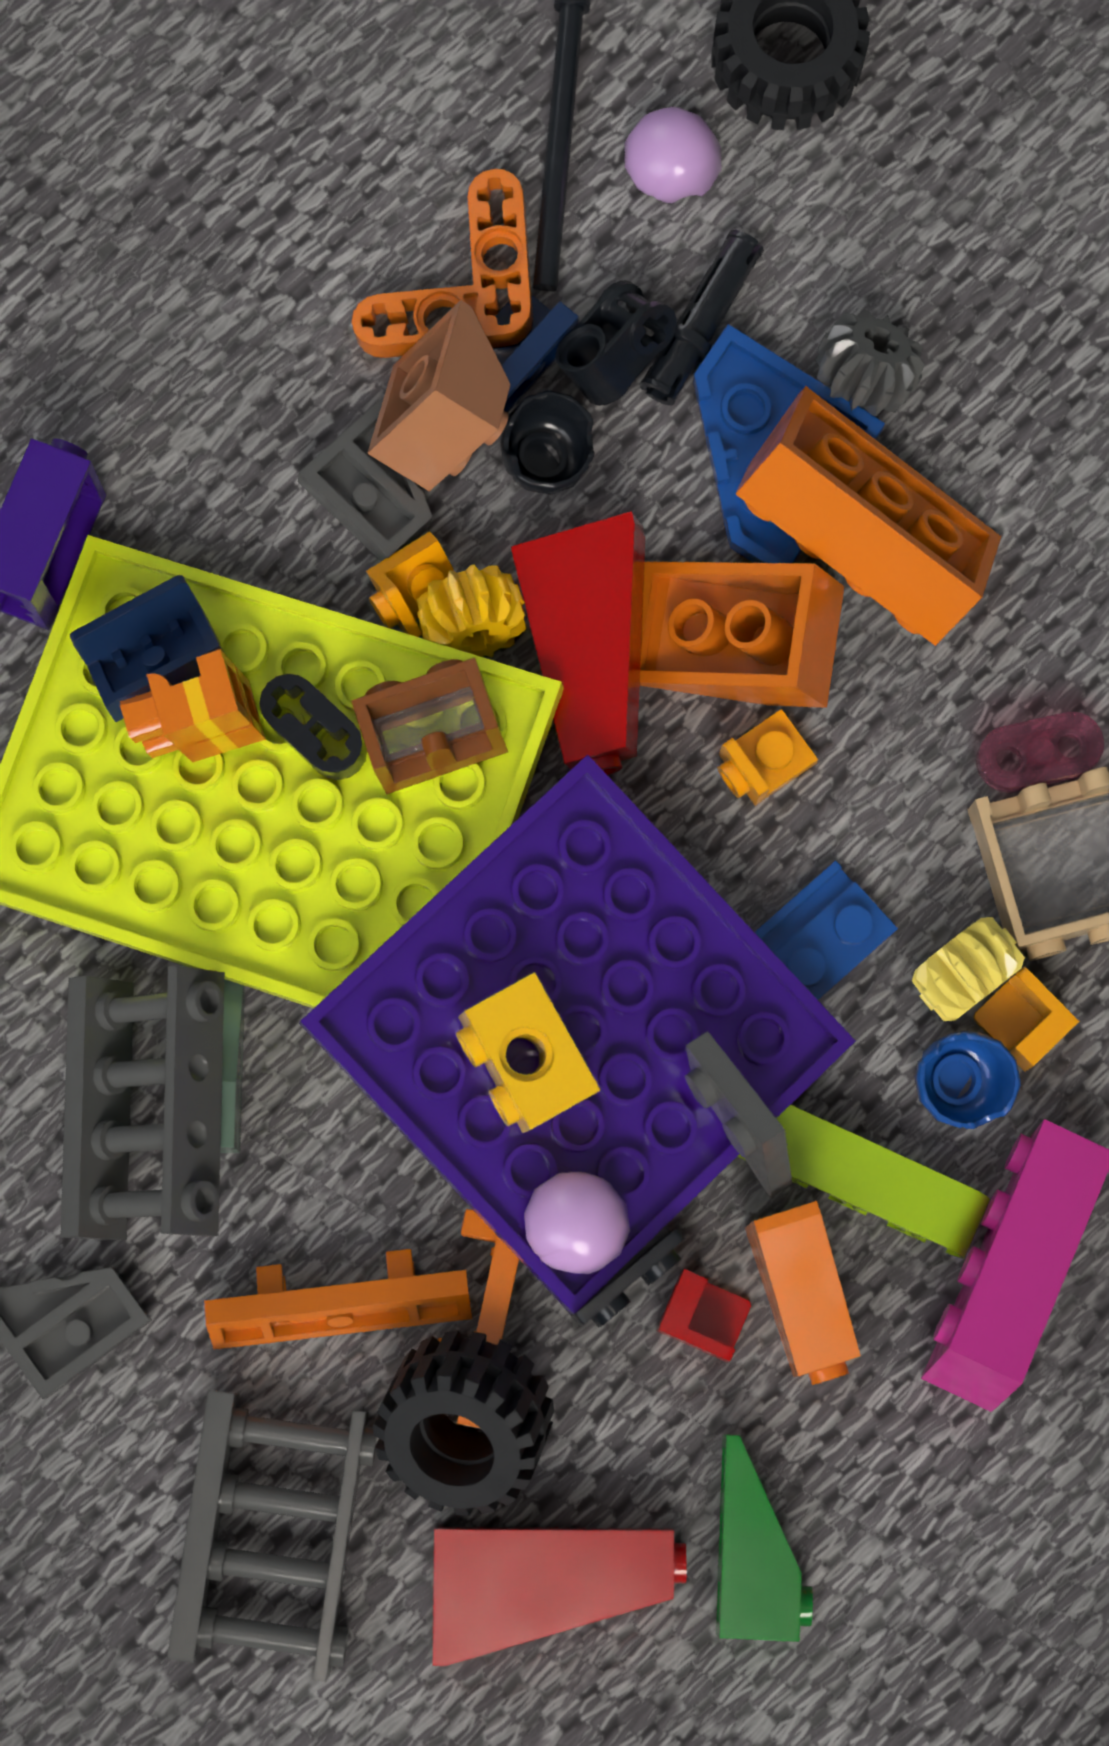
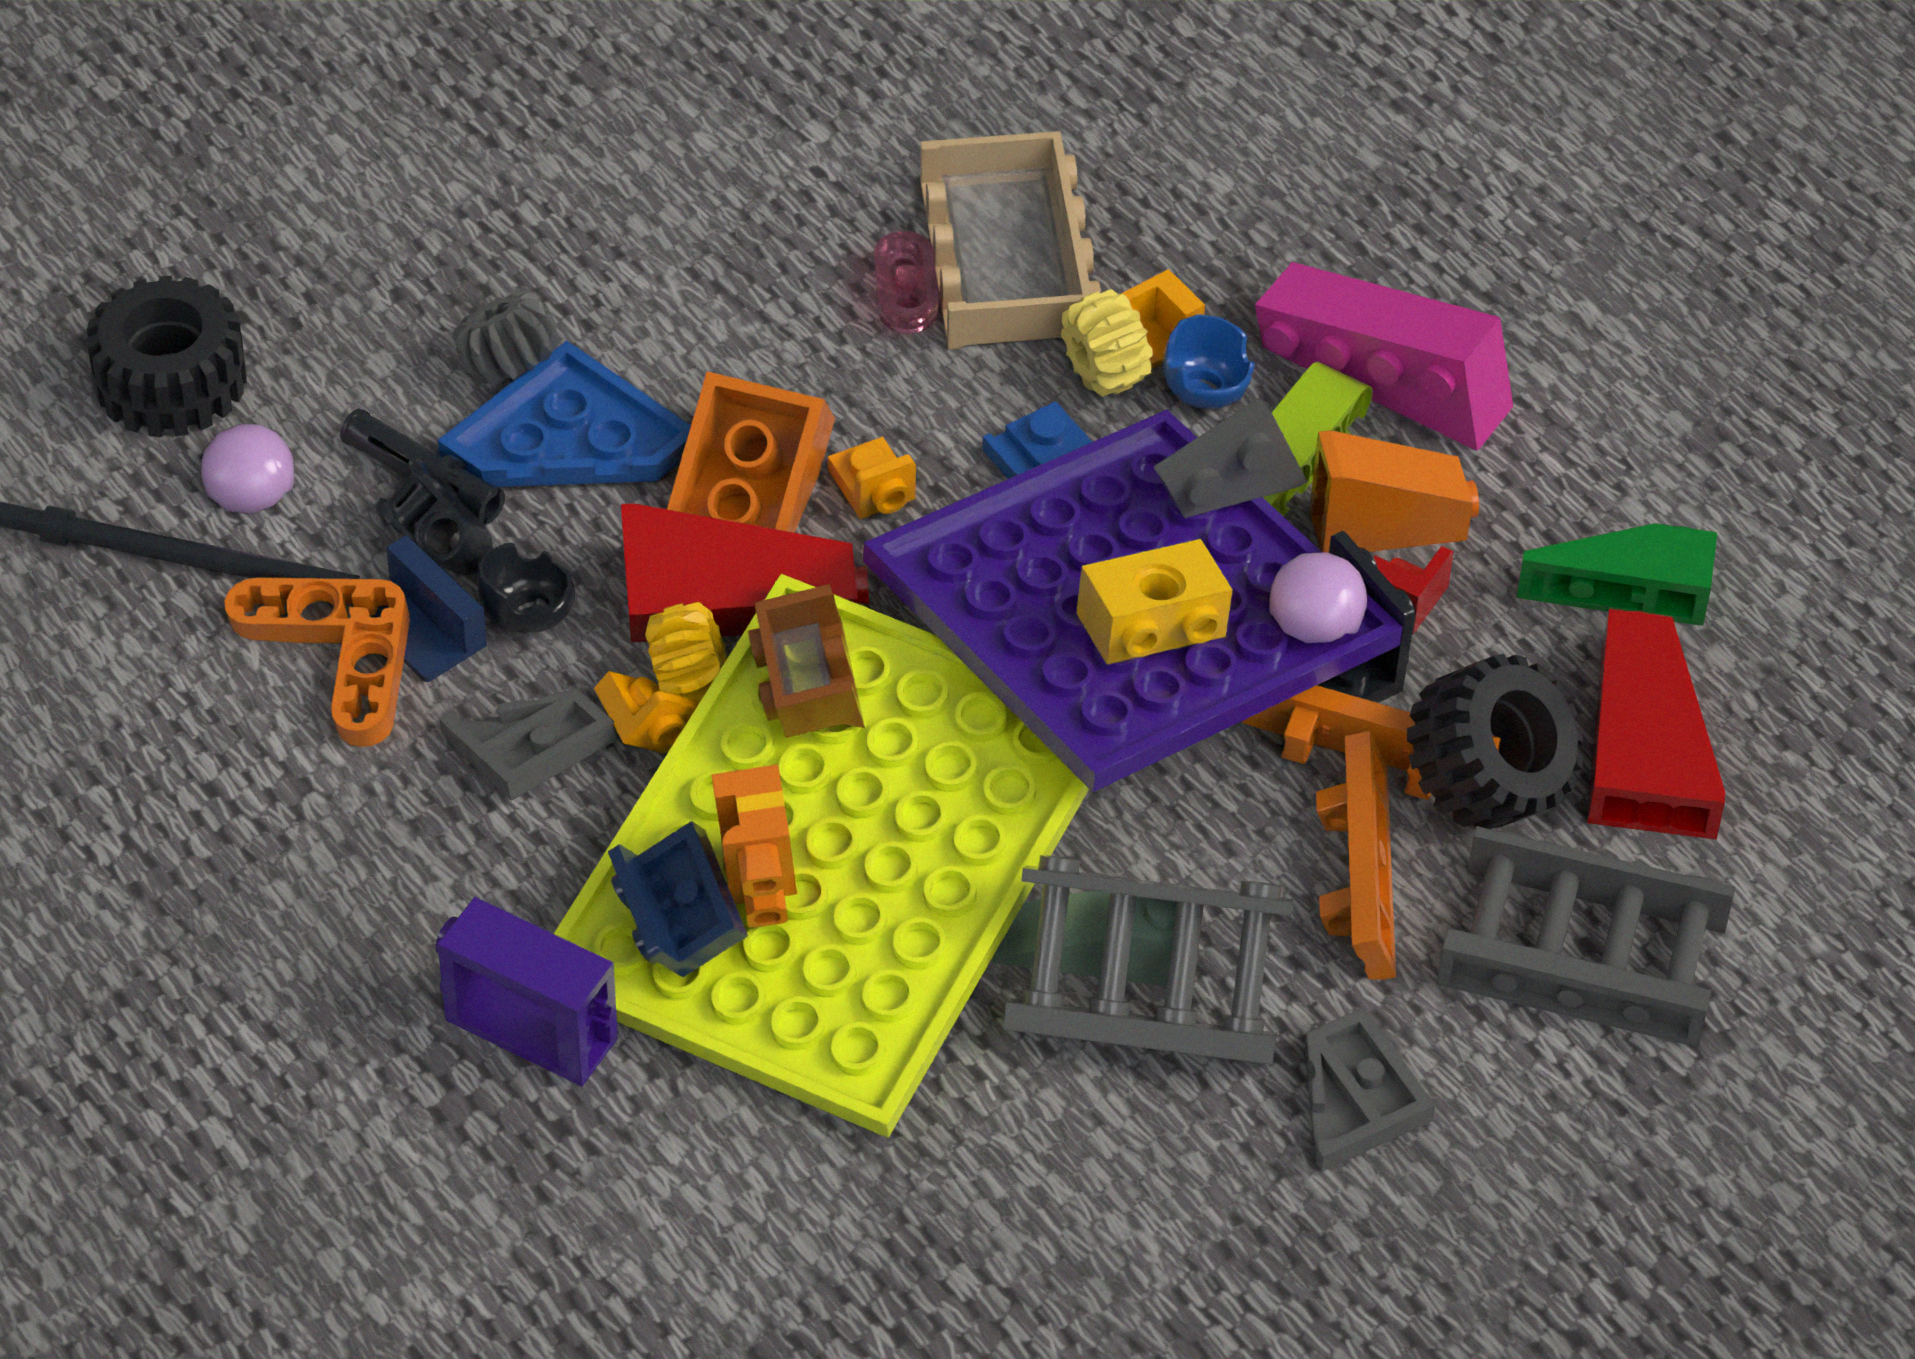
camera: 80 degrees left, 30 degrees down
(323, 716) = (801, 778): black beam -> none
(441, 401) = (463, 646): nougat slope -> none
(870, 517) = (665, 352): orange slope -> none

